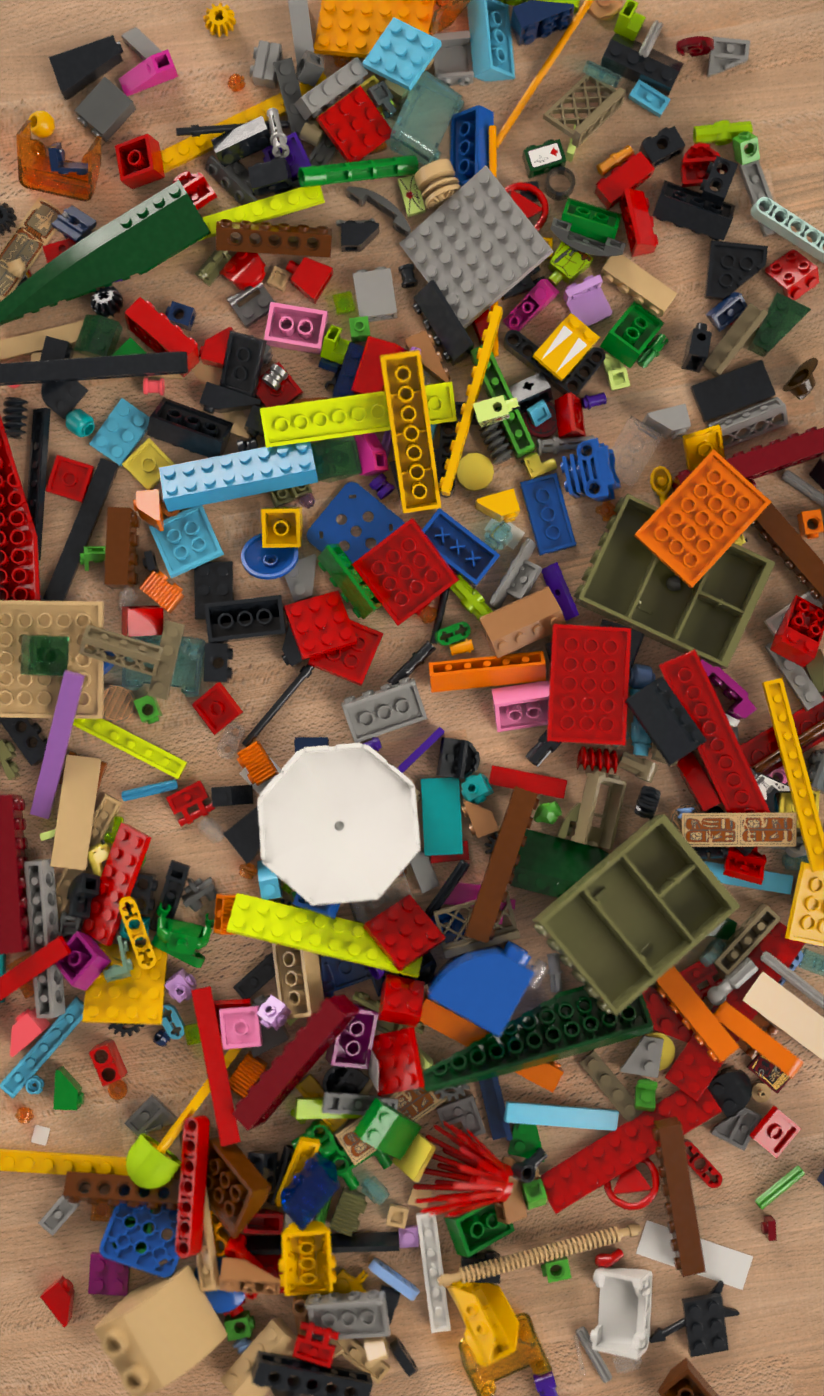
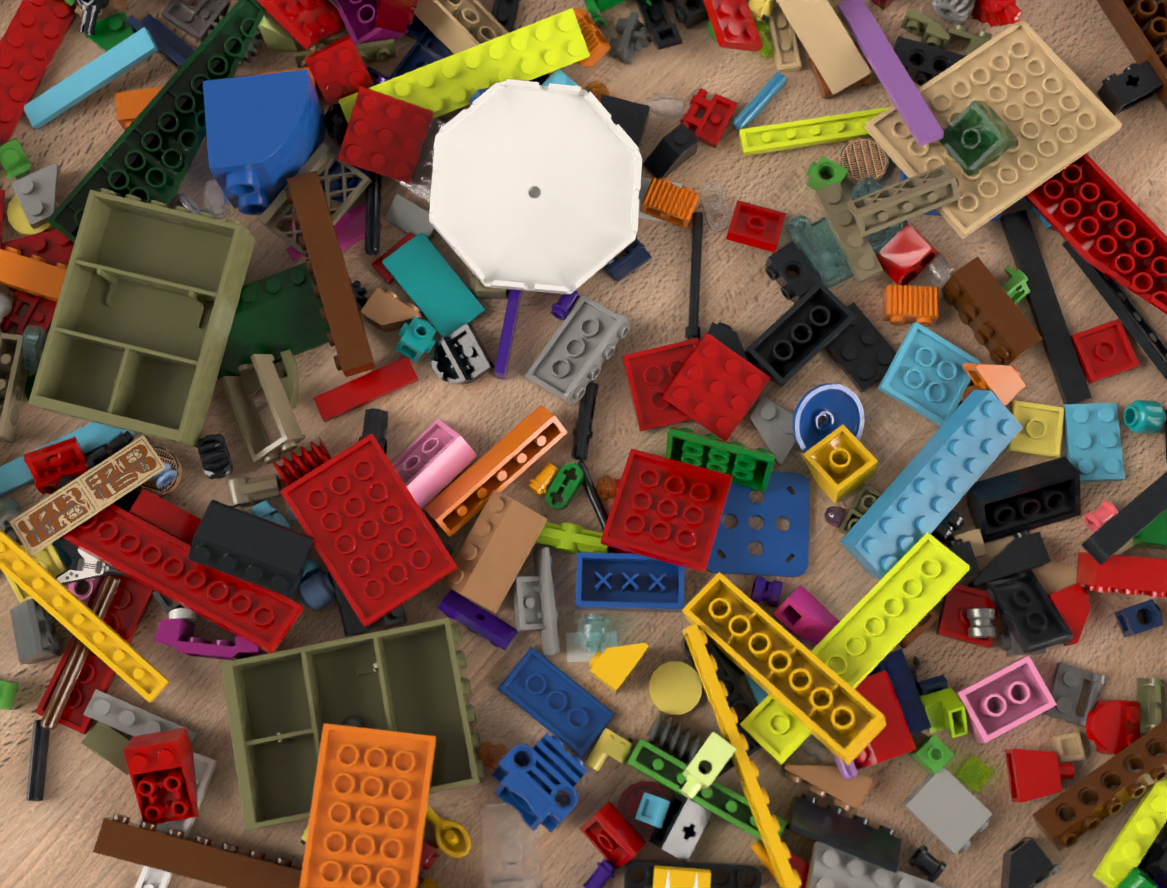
camera: 150 degrees right, 10 degrees down
(150, 561) = (948, 326): black plate -> none
(336, 459) = (840, 582): clear green slope -> none
(547, 813) = (319, 370): bright green rock -> none
(555, 444) = (605, 789): light grey pin -> none
(610, 1085) = (58, 146): dark tan plate -> none

